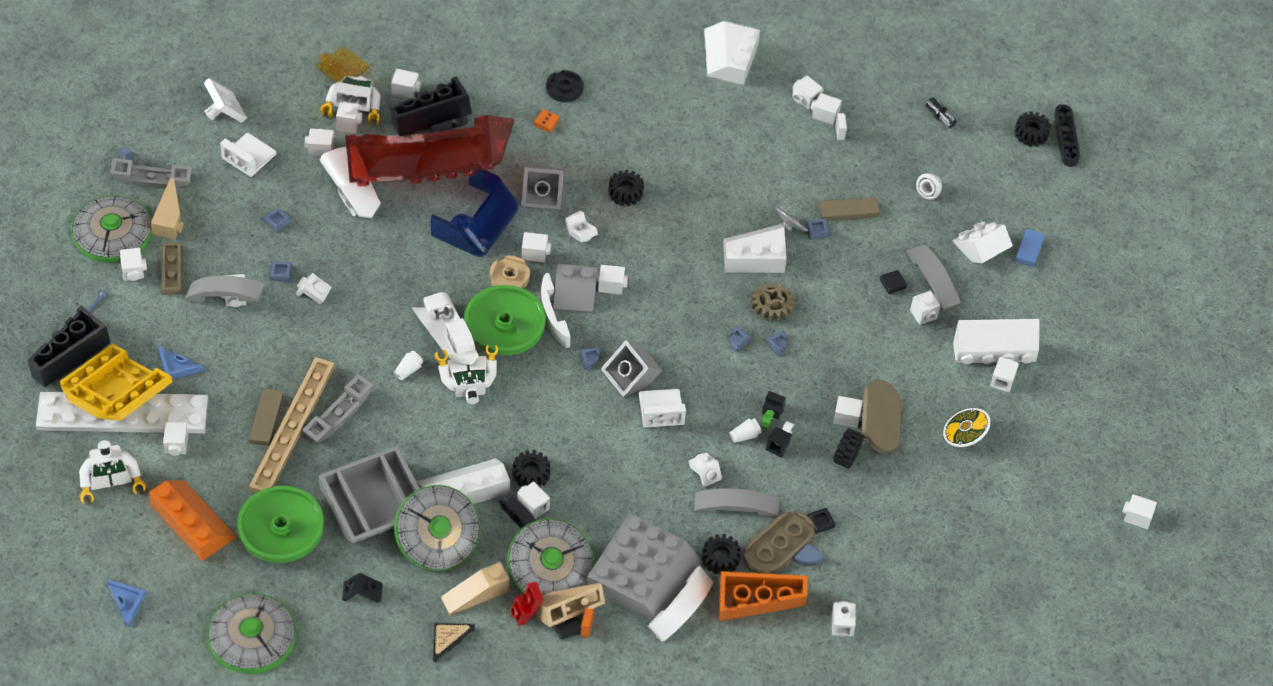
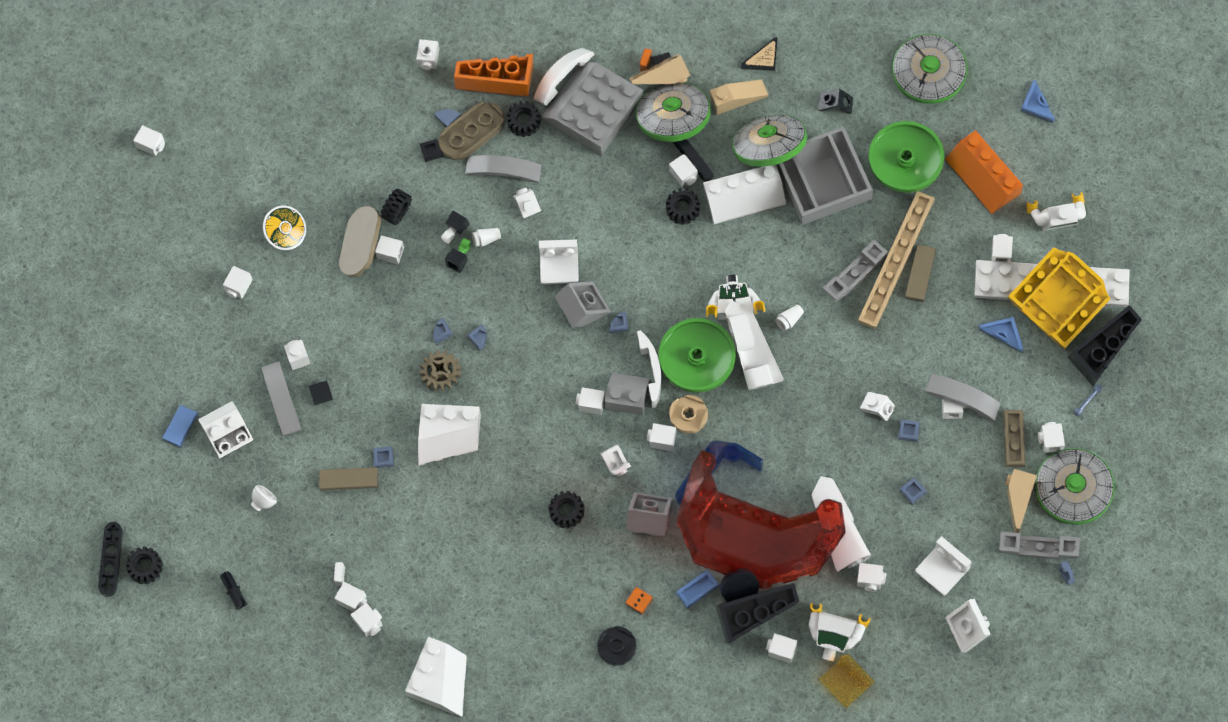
camera: 165 degrees left, 15 degrees up
(348, 117) = (841, 604): white brick -> none
(527, 604) = (696, 72): red slope -> none
(789, 222) = (407, 458): light grey dish -> none
(989, 339) = (238, 311): white slope -> none

